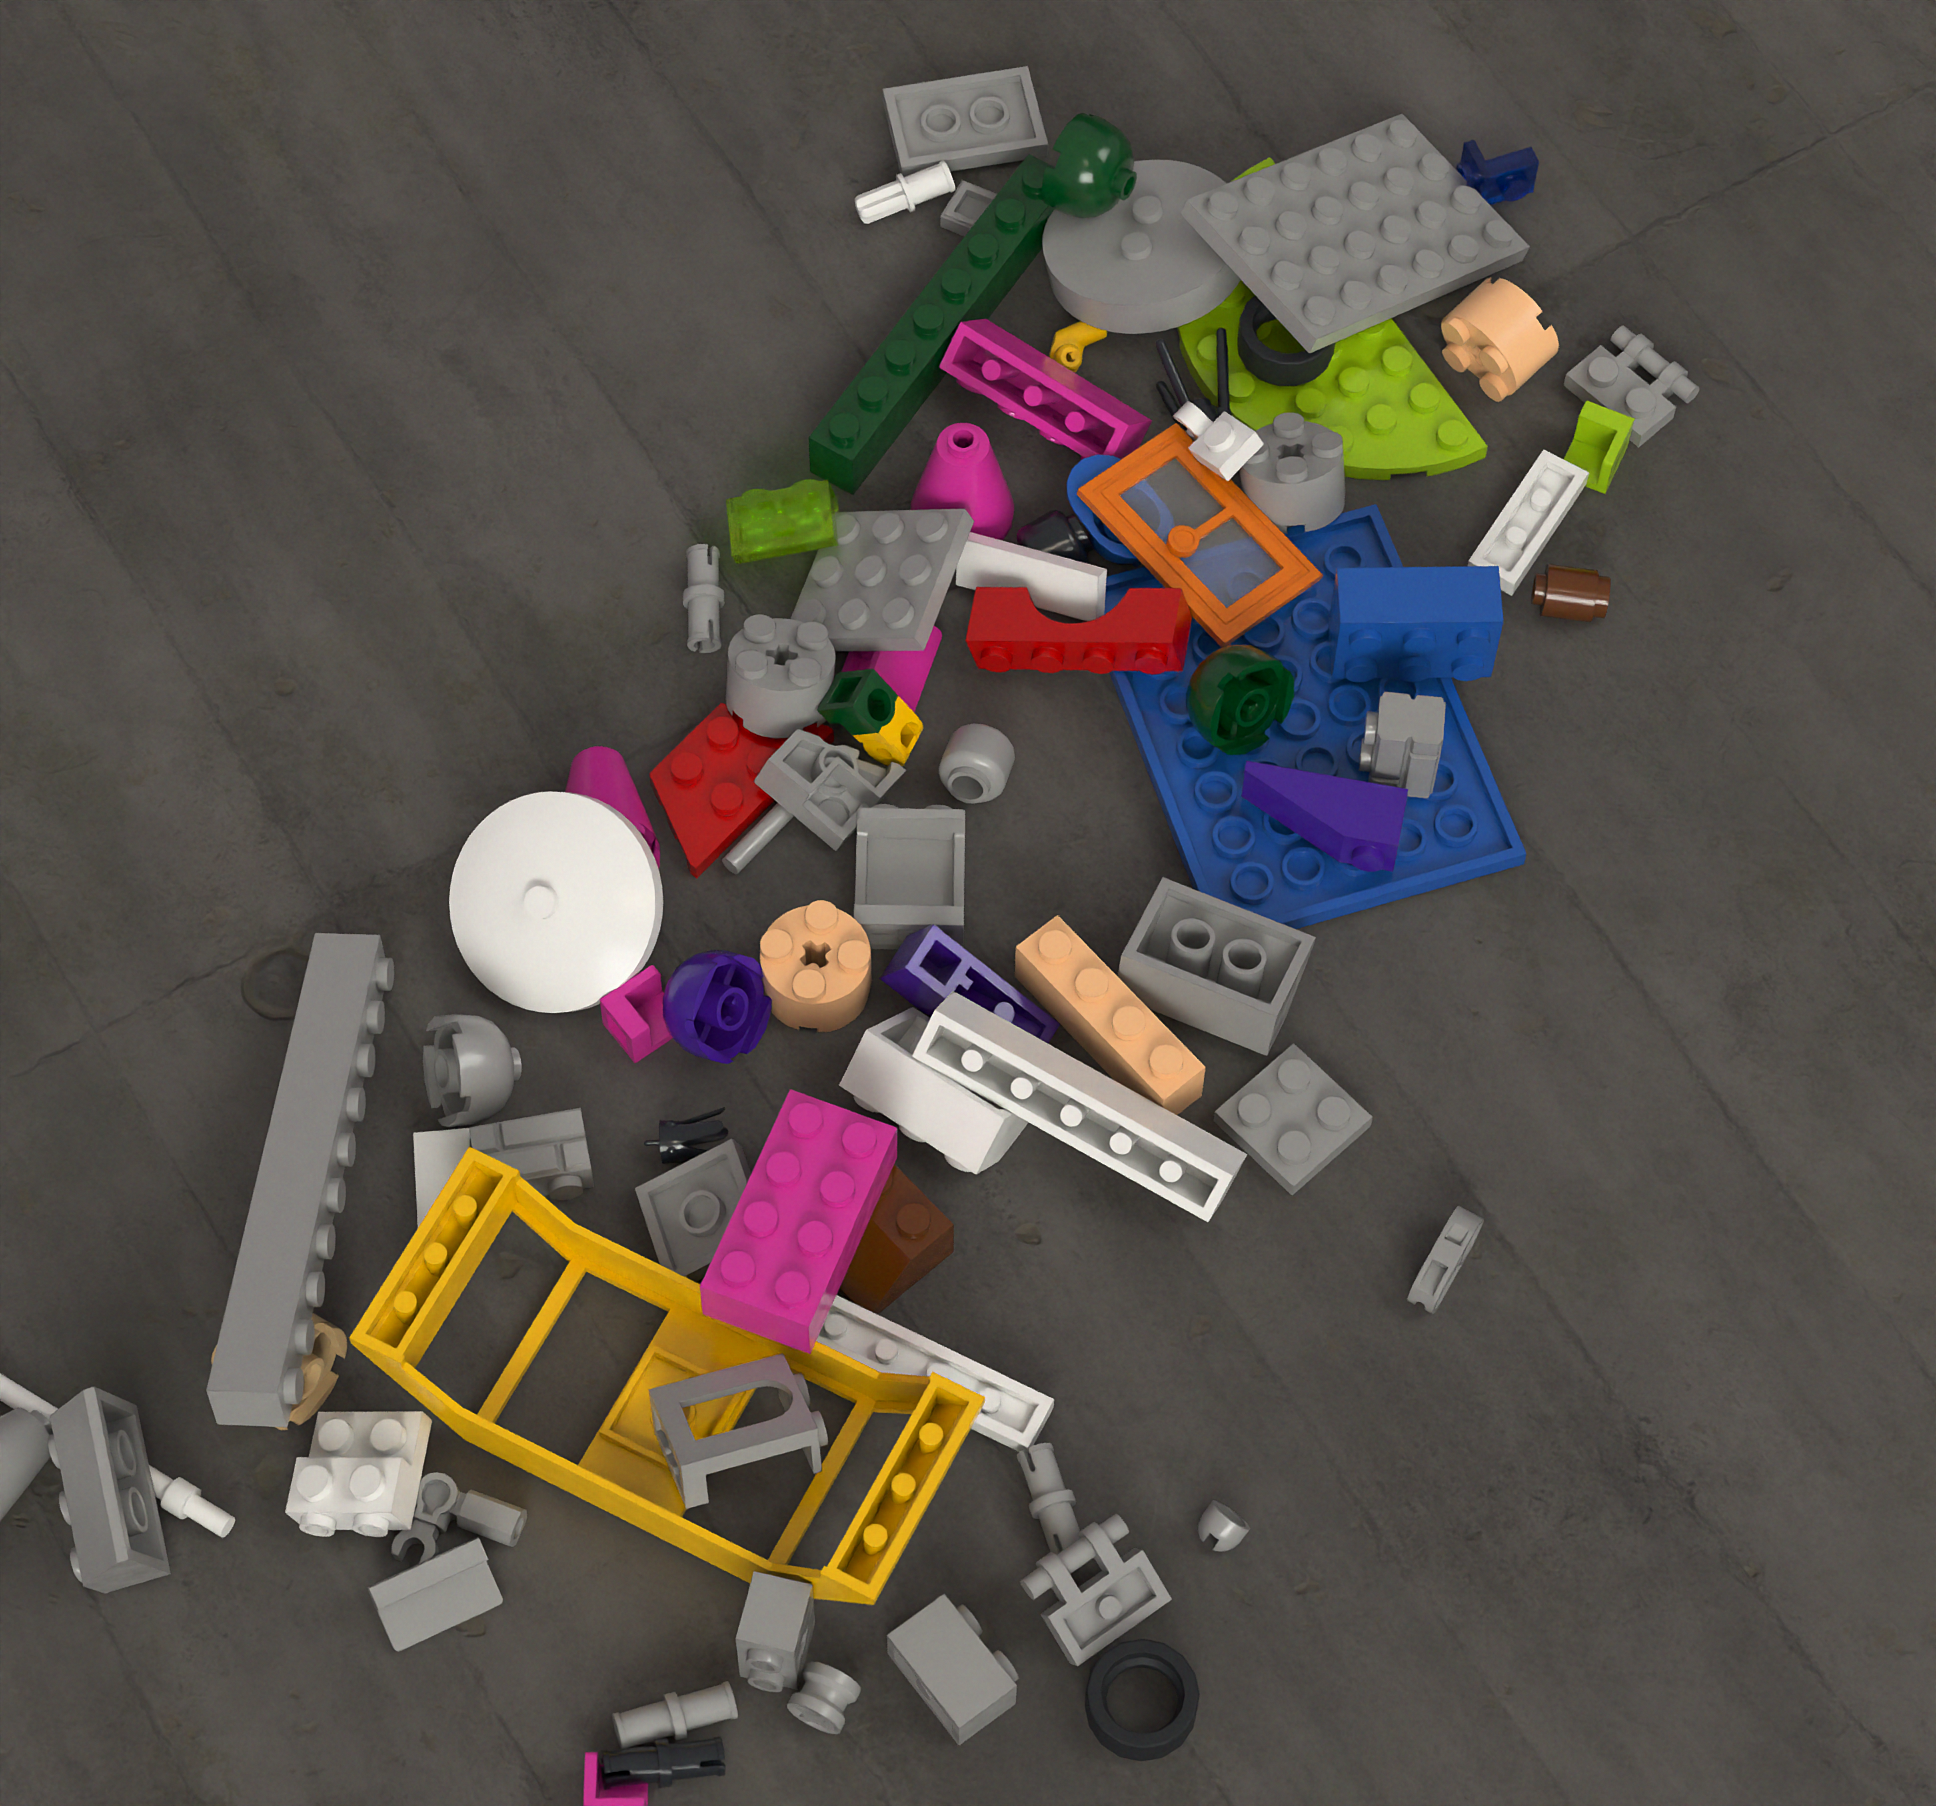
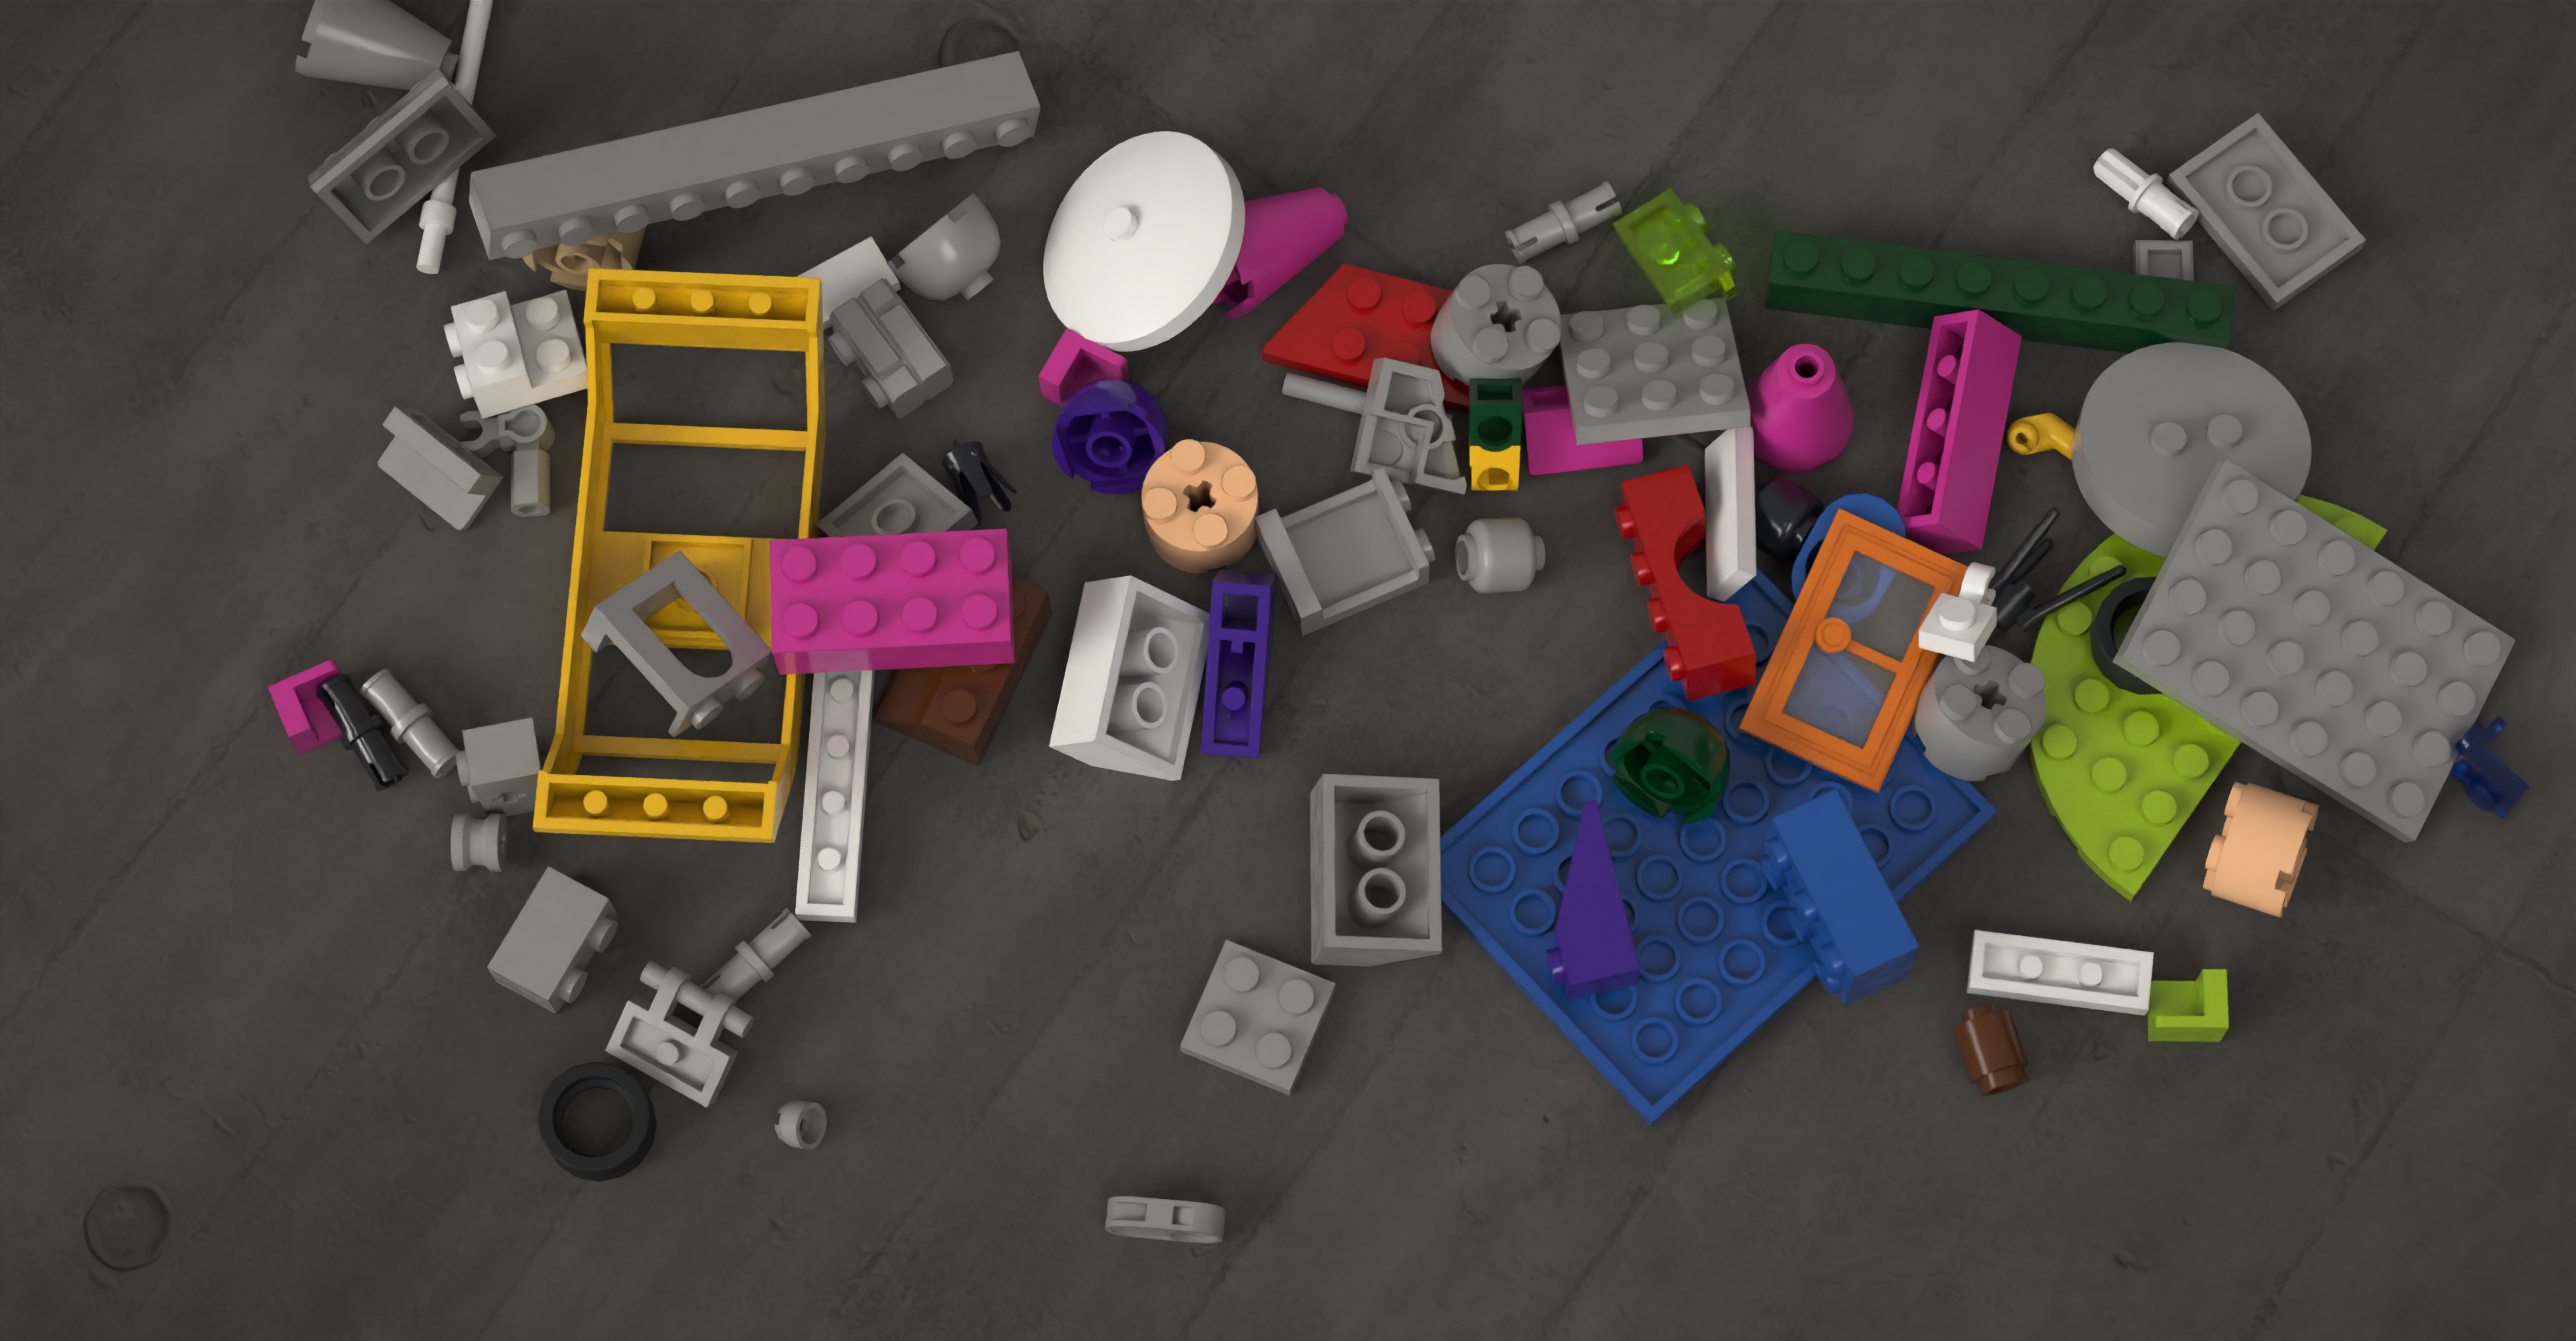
camera: 70 degrees right, 10 degrees up
(1079, 1105) = (1153, 807): white brick -> none
(1091, 169) = (2229, 348): dark green cylinder -> none
(1107, 1017) = (1271, 799): light nougat brick -> none
(1404, 742) = (1690, 944): light grey brick -> none
(1614, 385) = (2277, 1008): light grey plate -> none

